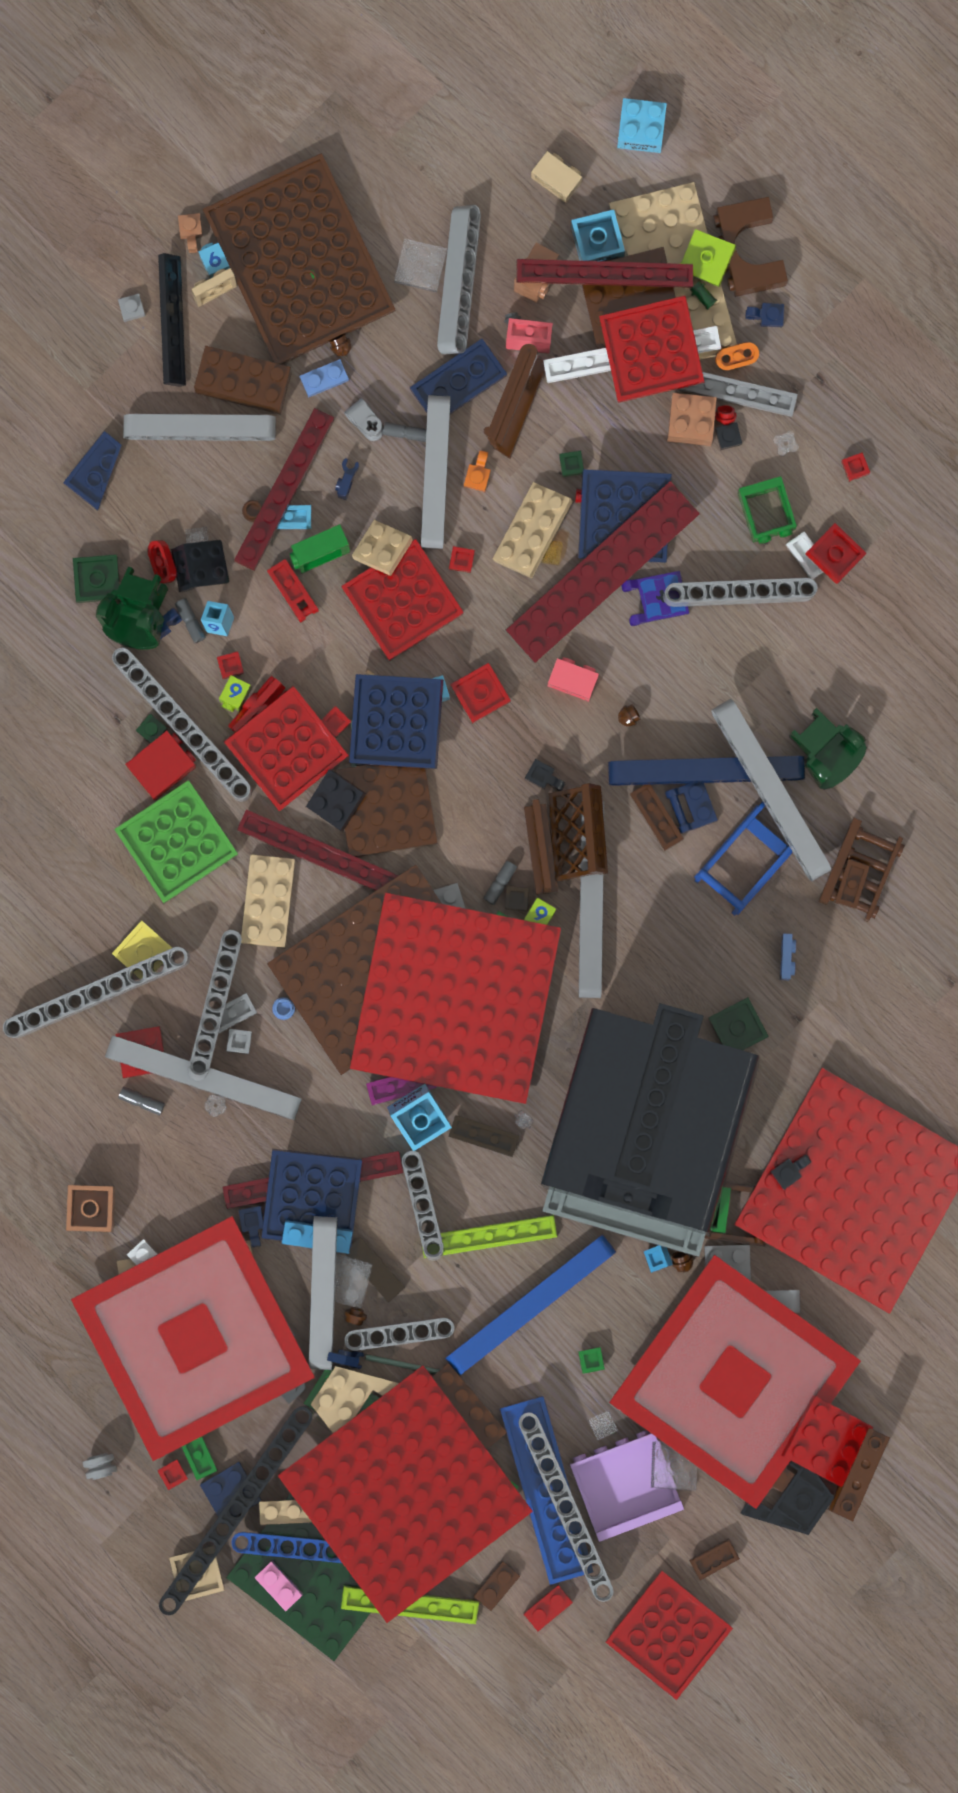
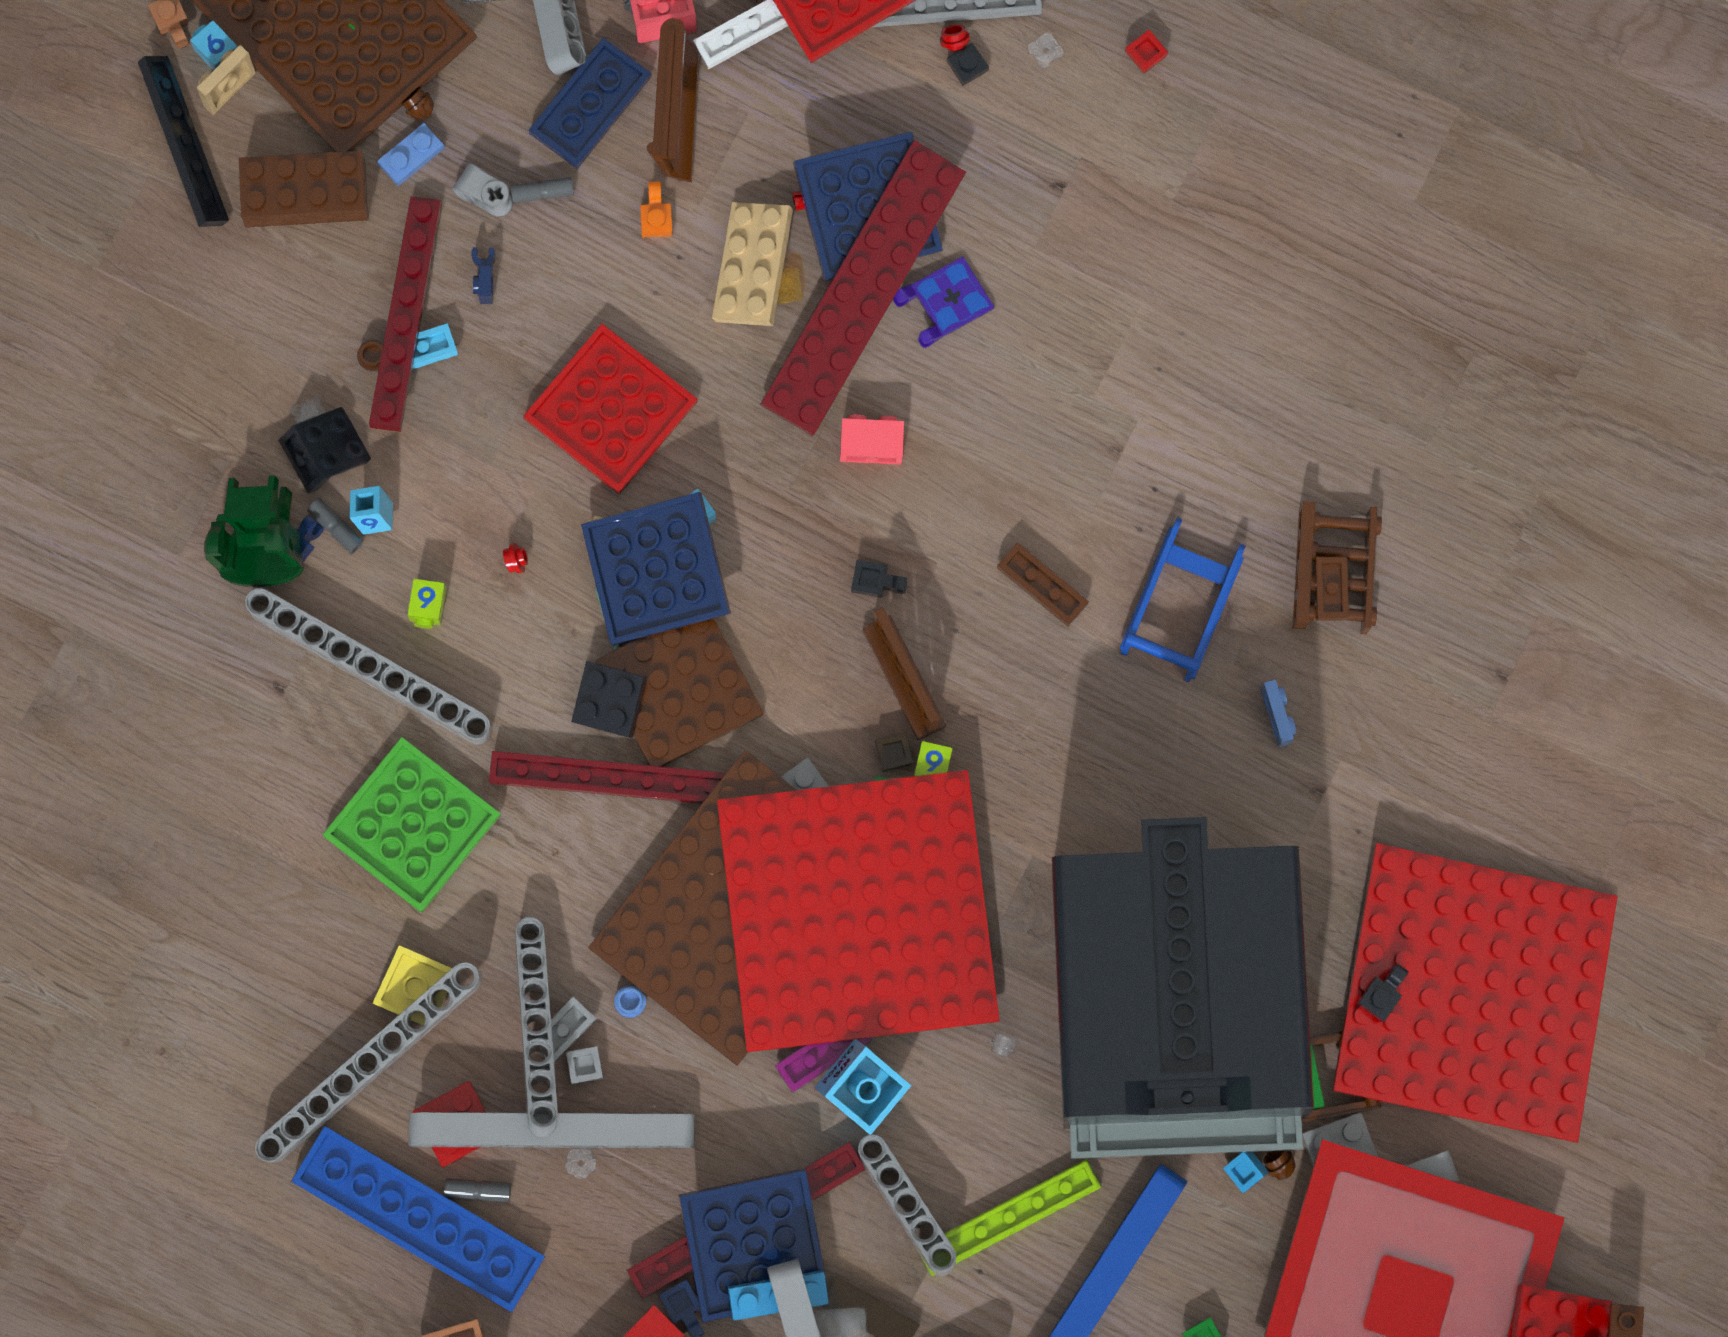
camera: 25 degrees left, 5 degrees down
(94, 470) = (142, 369): dark blue wing -> none
(95, 577) = (188, 509): dark green plate -> none
(96, 1107) = (418, 1219): none -> blue plate
(131, 307) = (123, 142): light grey plate -> none
(151, 729) = (329, 686): dark green plate -> none
(161, 765) = (358, 728): red brick -> none
(162, 561) = (271, 458): red plate -> none
(199, 427) = (265, 269): light grey beam -> none
(230, 665) = (408, 566): red plate -> none
(257, 702) = (462, 611): red piece -> none
(267, 901) = (561, 864): tan plate -> none
(285, 748) = (519, 652): red plate -> none
(292, 590) = (459, 442): red plate -> none
(304, 682) = (515, 558): none -> red plate
(319, 549) = (478, 375): green window -> none
(336, 722) = (574, 597): red plate -> none
(382, 547) = (561, 348): tan plate -> none
(435, 472) = (599, 227): light grey beam -> none
(461, 559) = (671, 331): red plate -> none
(480, 693) = (754, 497): red plate -> none
(483, 1136) = (957, 1084): dark brown plate -> none
(499, 884) = (865, 735): dark grey piece -> none
(571, 463) = (774, 162): dark green plate -> none
(590, 930) = (993, 721): light grey beam -> none
(592, 830) = (964, 621): reddish brown fence -> none
(628, 715) = (960, 465): reddish brown plate -> none
(691, 419) = (913, 56): nougat brick -> none
(697, 770) = (1088, 502): dark blue beam -> none
(698, 804) = (1092, 552): dark blue plate -> none
(738, 1025) = (1246, 822): dark green plate -> none
(750, 587) = (1062, 247): light grey beam -> none
(761, 488) = (1034, 116): green window -> none
(771, 789) = (1183, 498): light grey beam -> none
(798, 547) = (1123, 185): white tile -> none
(830, 750) = (1240, 423): dark green piece -> none
(835, 553) = (1159, 169): red plate -> none

